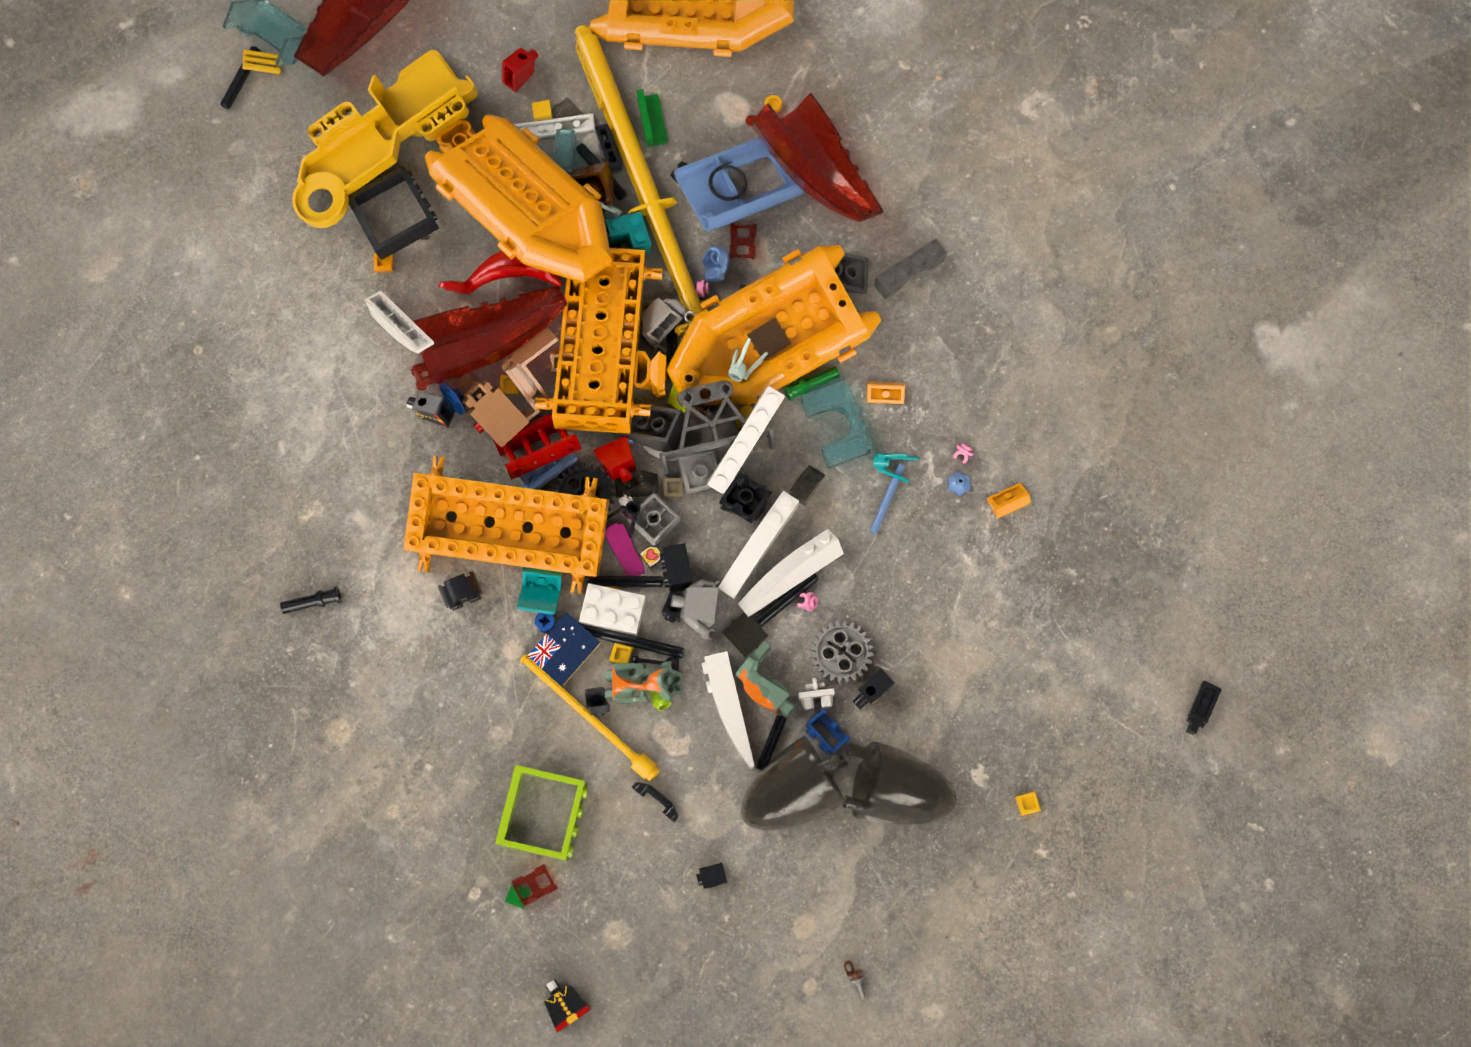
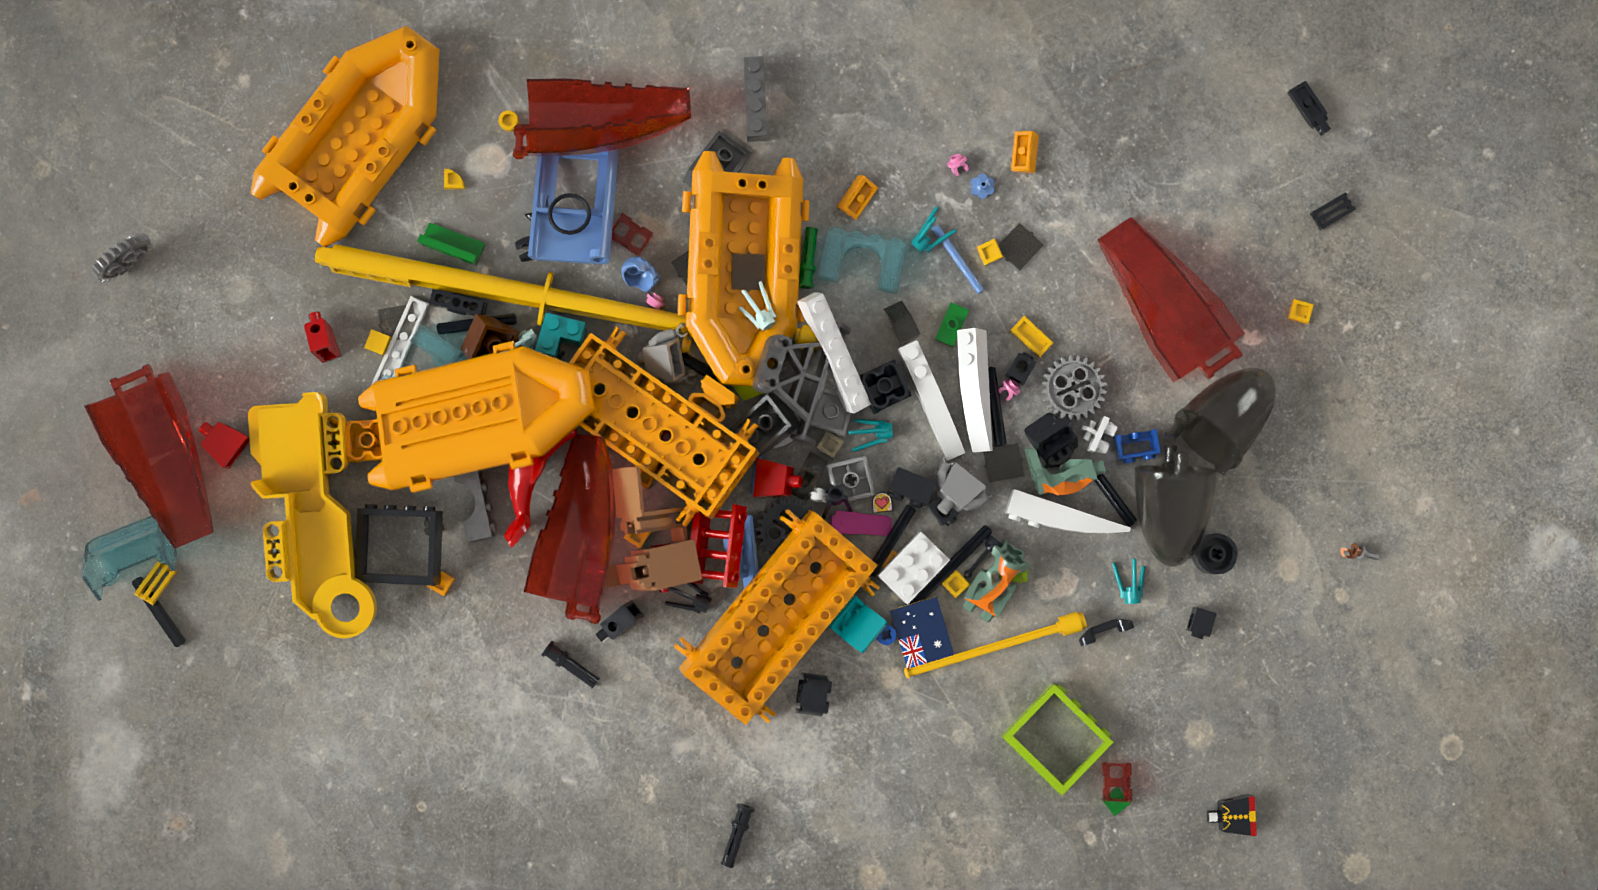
camera: 60 degrees left, 10 degrees up
(375, 385) = (562, 659): none -> black pin
(396, 48) = (223, 443): none -> red torso
(397, 323) = (524, 605): white slope -> none
(446, 262) = (479, 524): none -> flat silver arch
(453, 397) = (622, 594): blue dish -> none
(483, 462) = (700, 601): none -> black plant
(596, 702) = (988, 631): black bracket -> none
(700, 803) = (1133, 593): none -> teal plant
(701, 92) = (452, 180): none -> yellow tile
(710, 520) = (883, 431): none -> teal plant
(772, 840) = (1225, 558): none -> black brick
(787, 660) = (1052, 439): none -> black piece
(824, 606) = (1020, 377): none -> black brick
(837, 524) = (951, 323): none -> green plate
(862, 594) = (1031, 336): none -> yellow tile
(880, 682) = (1121, 372): black torso -> none
(909, 520) = (990, 252): none -> yellow tile
(929, 541) = (1020, 246): none -> clear smoke piece
(963, 688) = (1172, 305): none -> clear red windscreen
(1145, 787) = (1347, 202): none -> black tile

